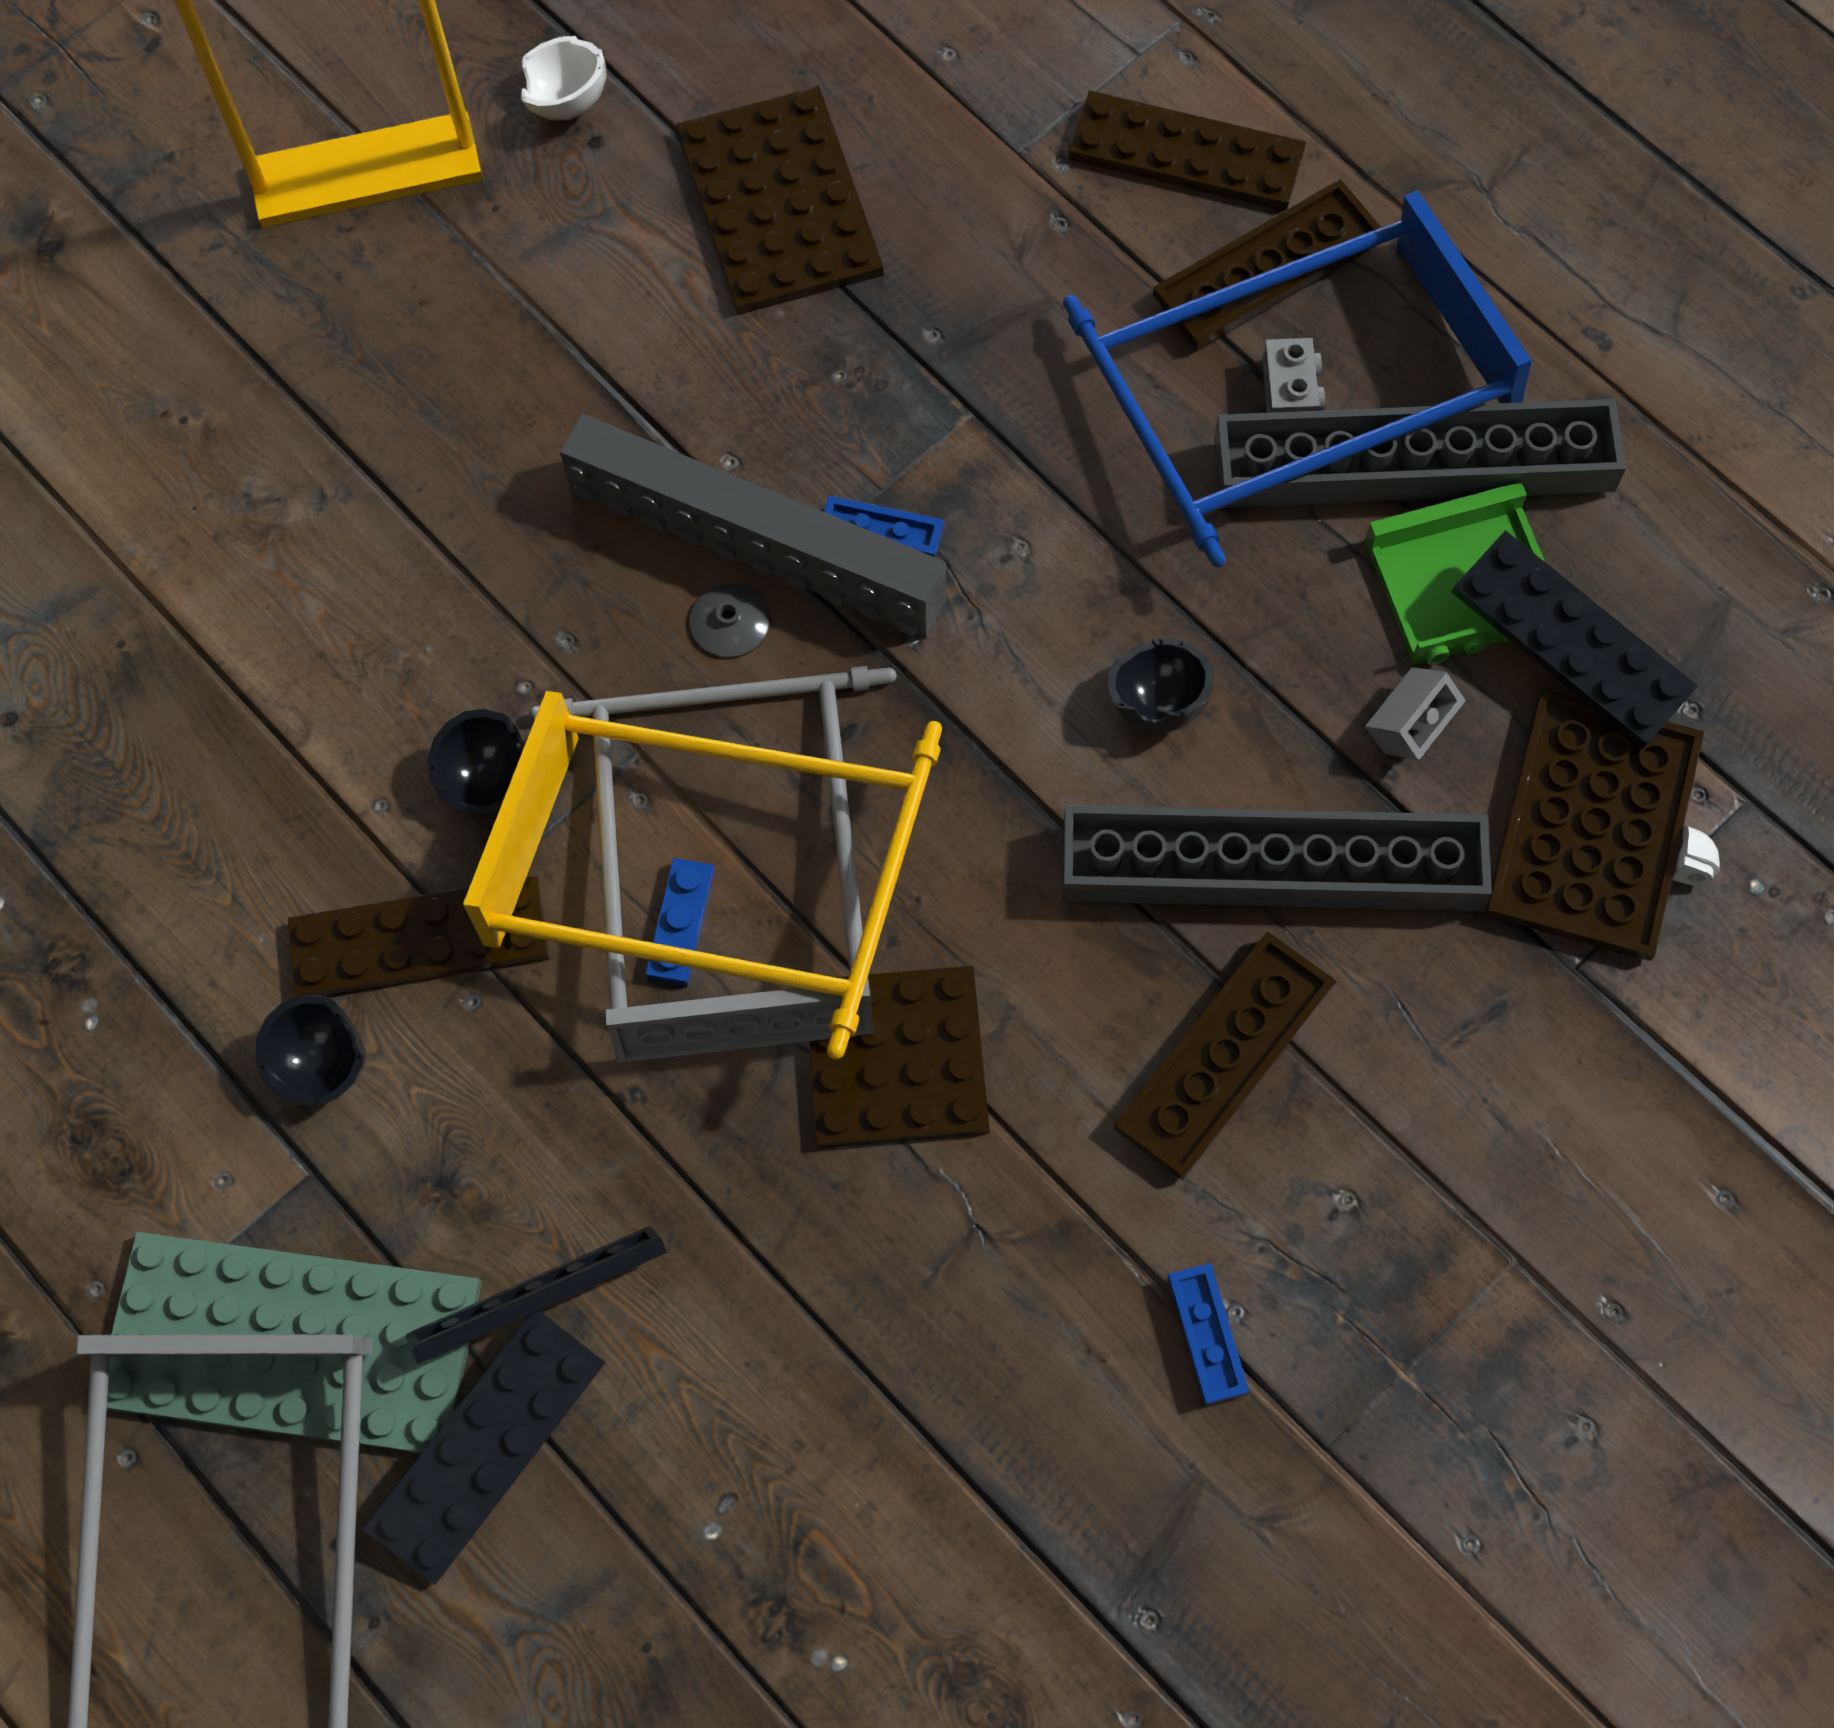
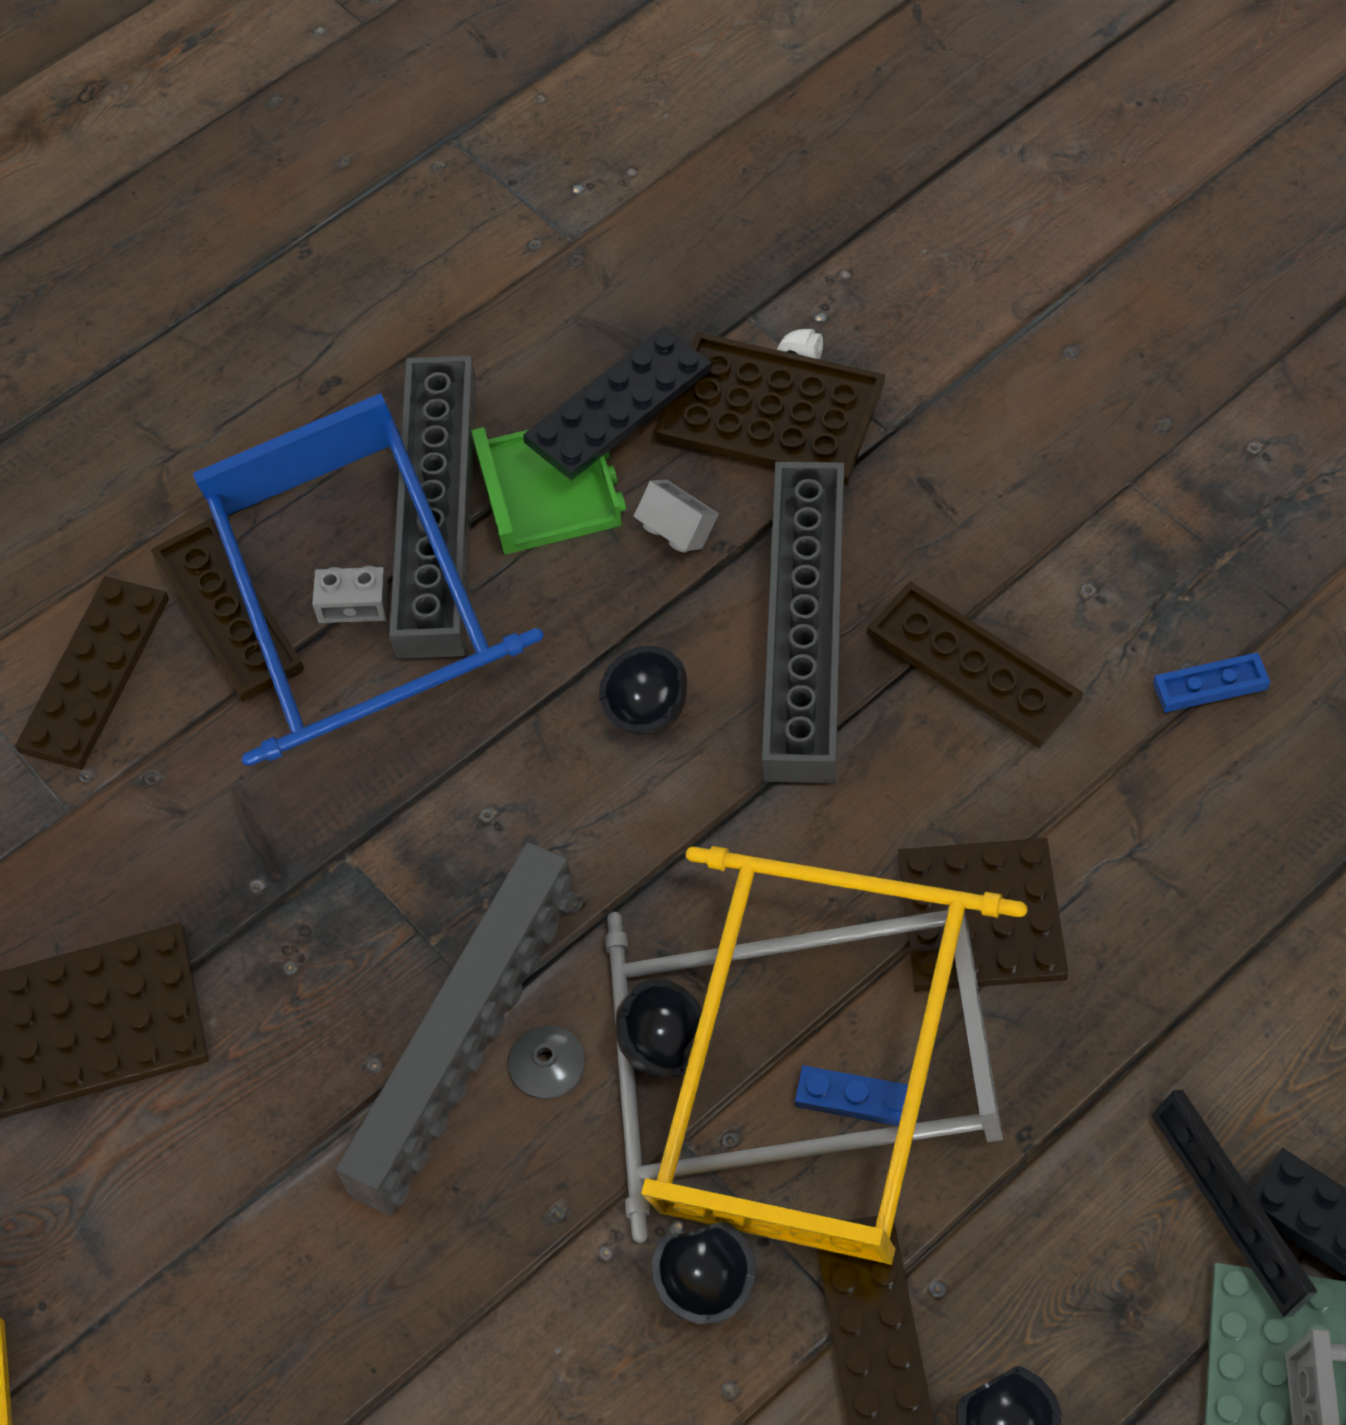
camera: 85 degrees left, 10 degrees down
(743, 708) = (657, 1027): none -> black cylinder
(903, 527) = (466, 909): blue plate -> none

